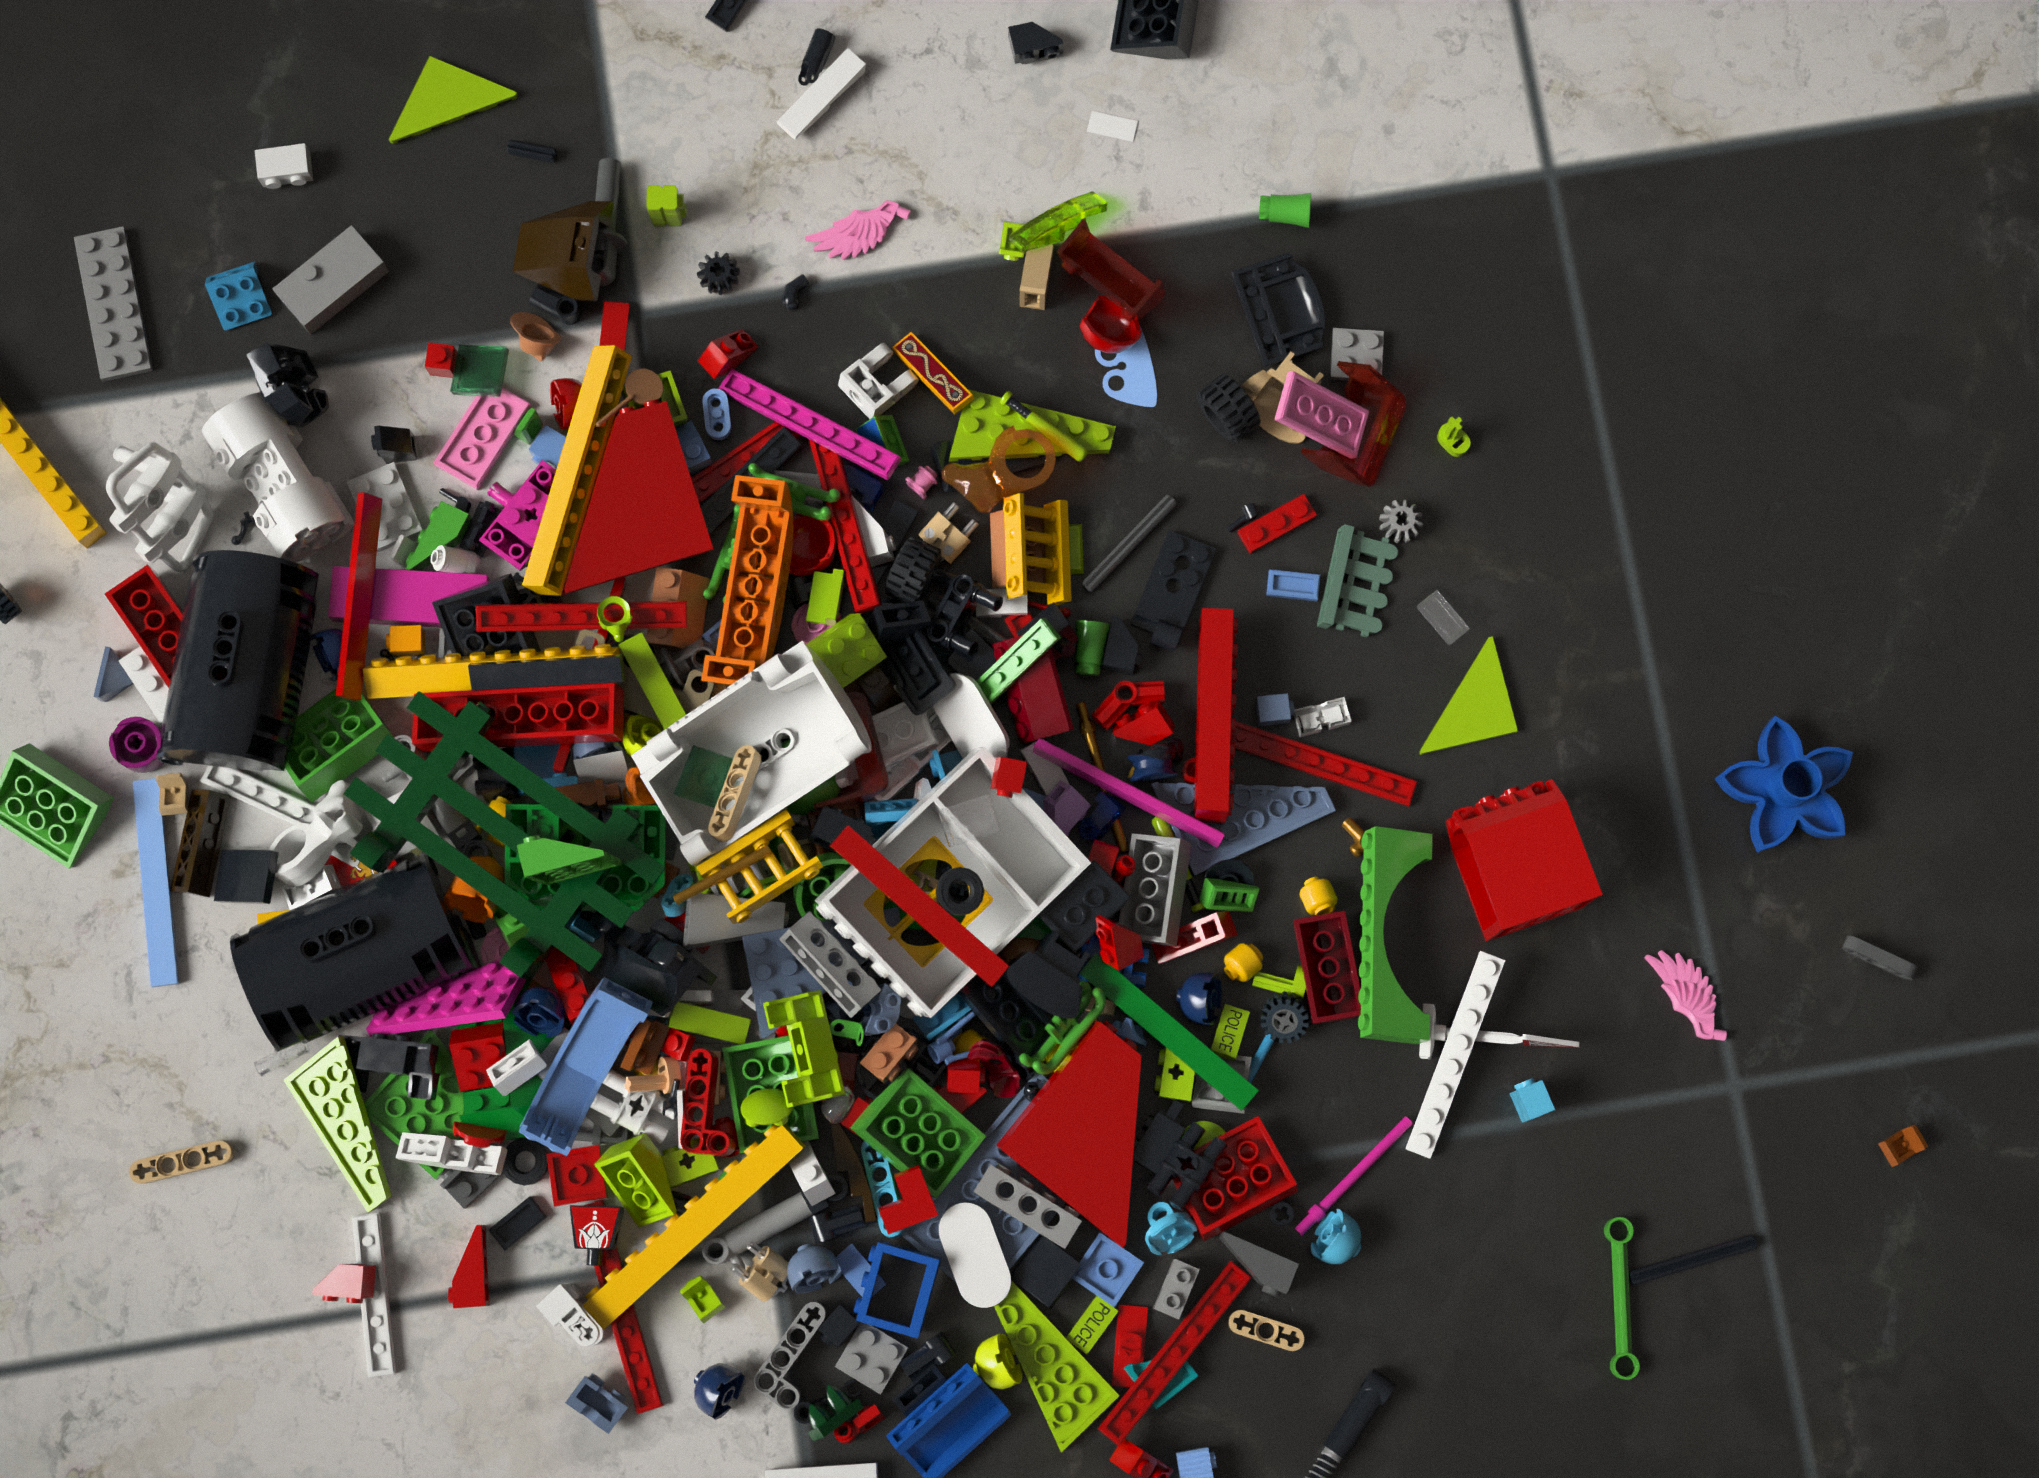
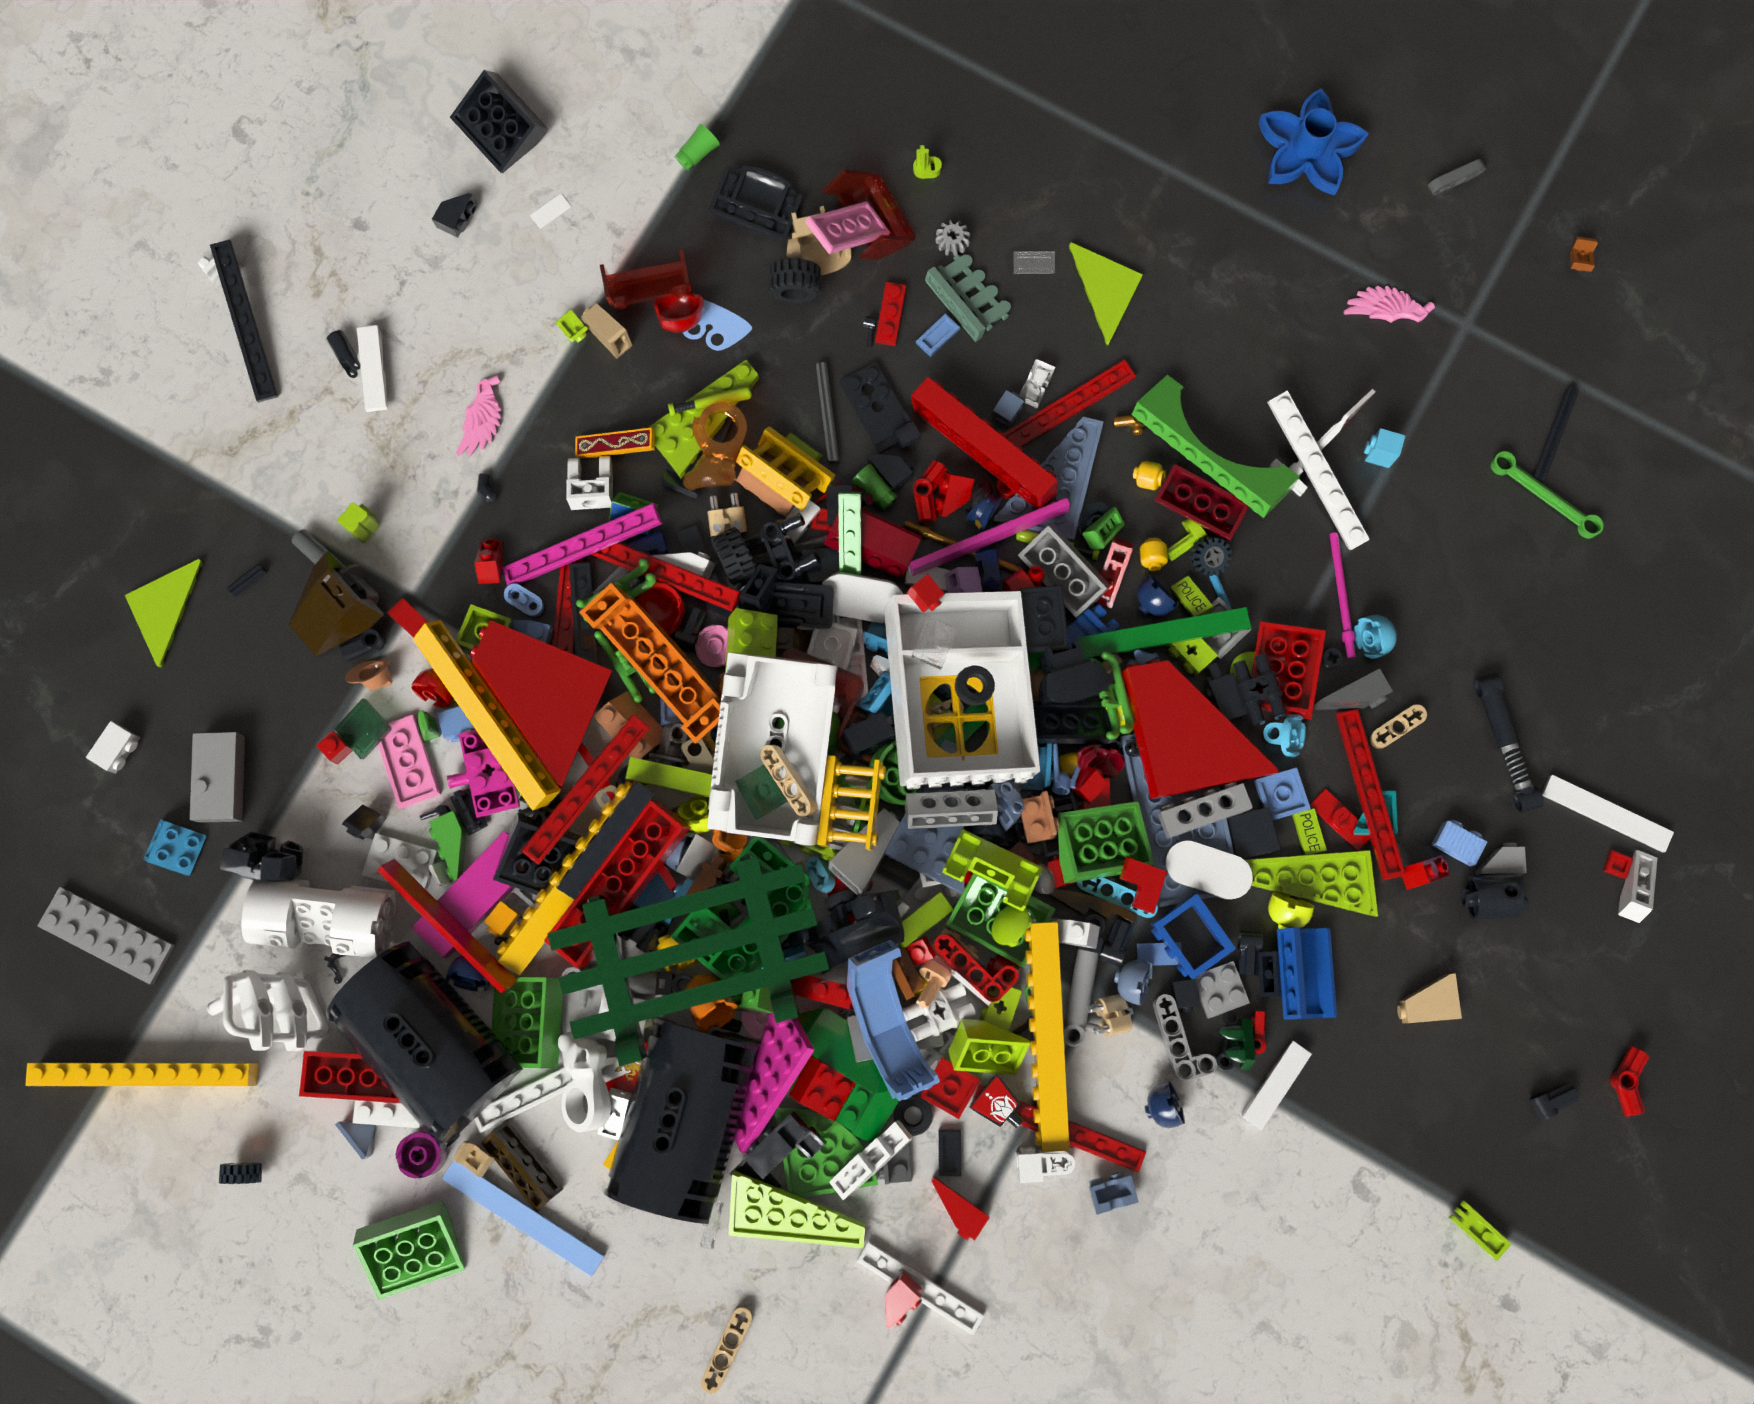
camera: 45 degrees left, 0 degrees up
(246, 876) = (571, 1151): black tile -> none
(455, 560) = (476, 844): white head -> none
(478, 1135) = (874, 1132): red tile -> none
(516, 1068) = (850, 1070): white slope -> none
(540, 1012) = (825, 1024): dark blue cylinder -> none
(556, 861) = (742, 927): bright green slope -> none
(615, 628) = (614, 771): lime piece -> none
(641, 387) = (467, 630): medium nougat piece -> none
(671, 1102) = (955, 986): black hand -> none
(702, 1298) = (1097, 1069): lime bracket -> none
(709, 269) = (430, 533): black gear -> none
(722, 874) = (836, 830): pearl gold bar -> none
(826, 597) = (704, 624): lime panel -> none
(851, 1030) = (1003, 831): bright green piece -> none
(919, 905) = (962, 718): red tile -> none
(922, 481) = (678, 506): bright pink brick -> none
(1053, 223) = (583, 291): clear neon green slope -> none
(1118, 943) = (1084, 617): red slope -> none
(1176, 1288) = (1329, 760): light grey brick -> none
(1355, 347) = (817, 178): light grey plate -> none
(1521, 858) = (1232, 329): red container -> none

